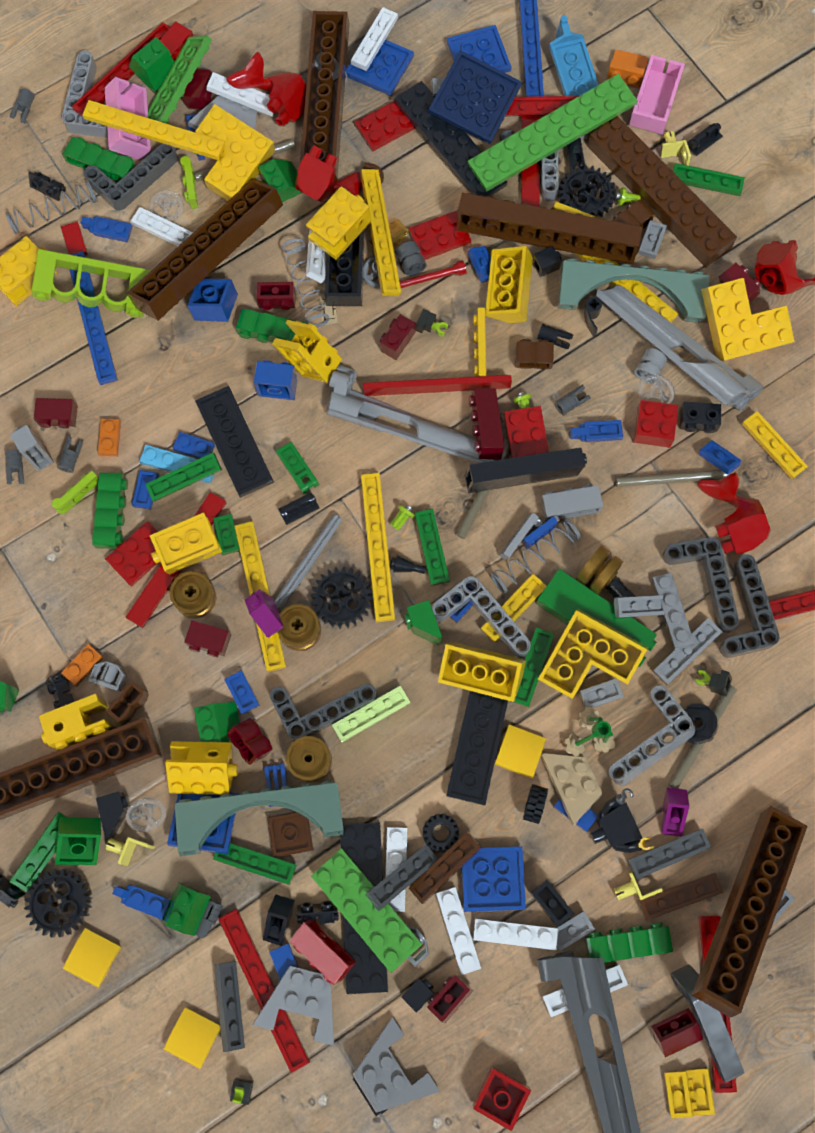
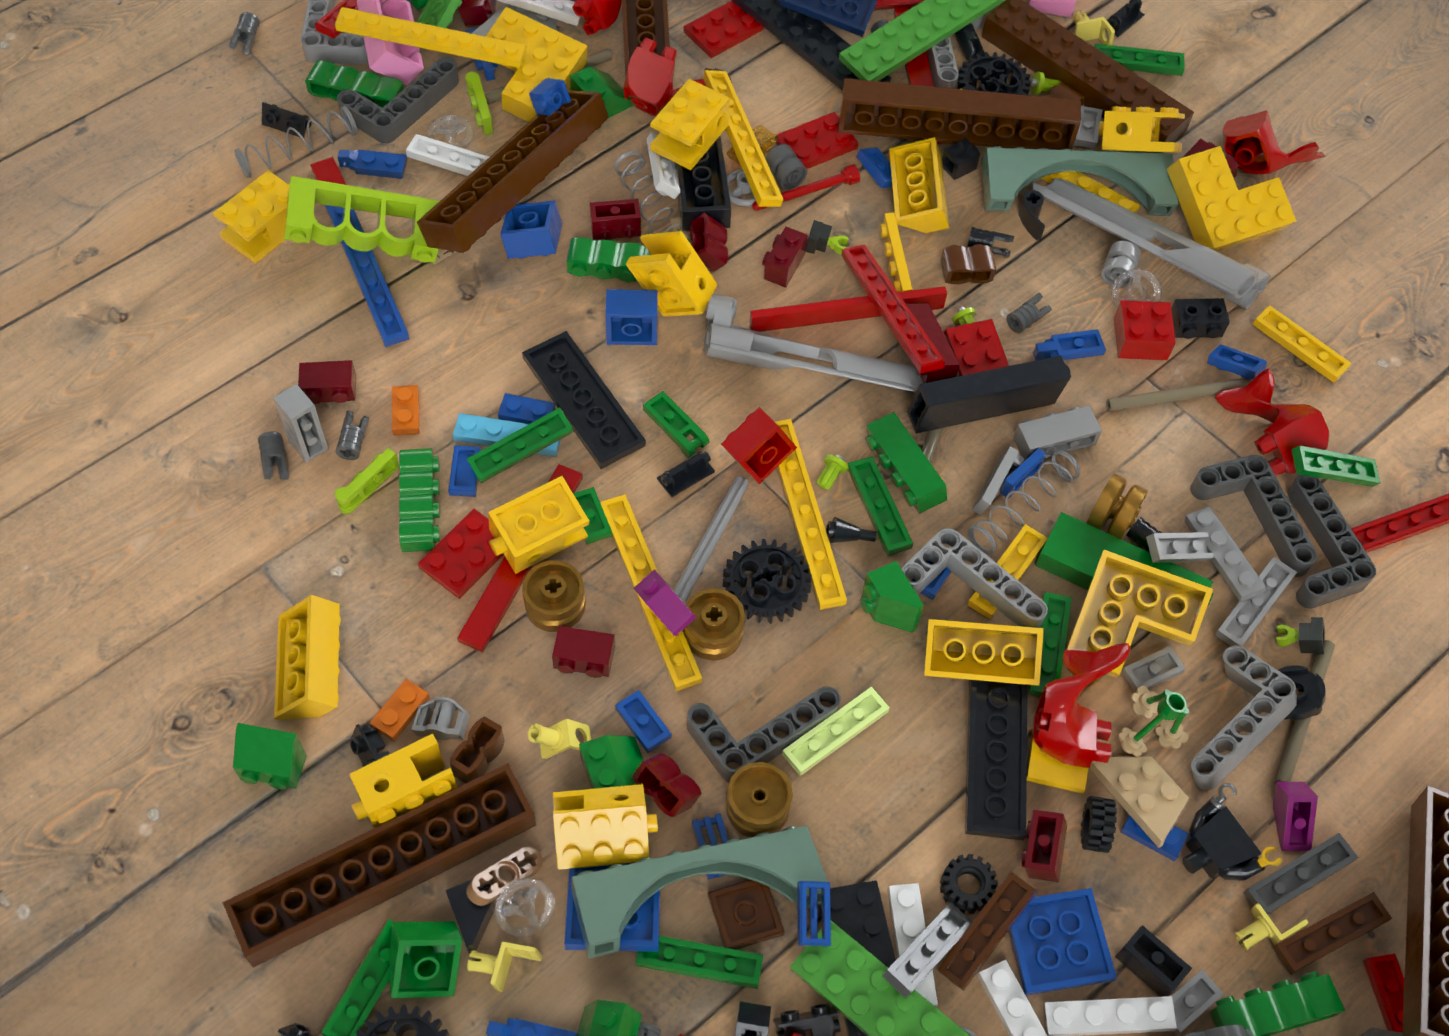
camera: 15 degrees left, 15 degrees down
(24, 623) = (307, 659): none -> yellow slope
(125, 804) = (498, 885): none -> medium nougat beam
(184, 698) = (558, 737): none -> light yellow bracket
(237, 188) = (549, 96): none -> blue brick
(331, 828) = (801, 908): none -> blue tile
(342, 320) = (709, 241): none -> dark red brick
(349, 496) = (759, 445): none -> red brick
(455, 518) = (906, 462): none -> green brick
(466, 393) = (893, 309): none -> red tile
(496, 814) = (1045, 845): none -> dark red brick
(526, 731) = (1064, 726): none -> red hips
(687, 252) = (1137, 130): none -> yellow torso
(770, 553) = (1335, 466): none -> green plate

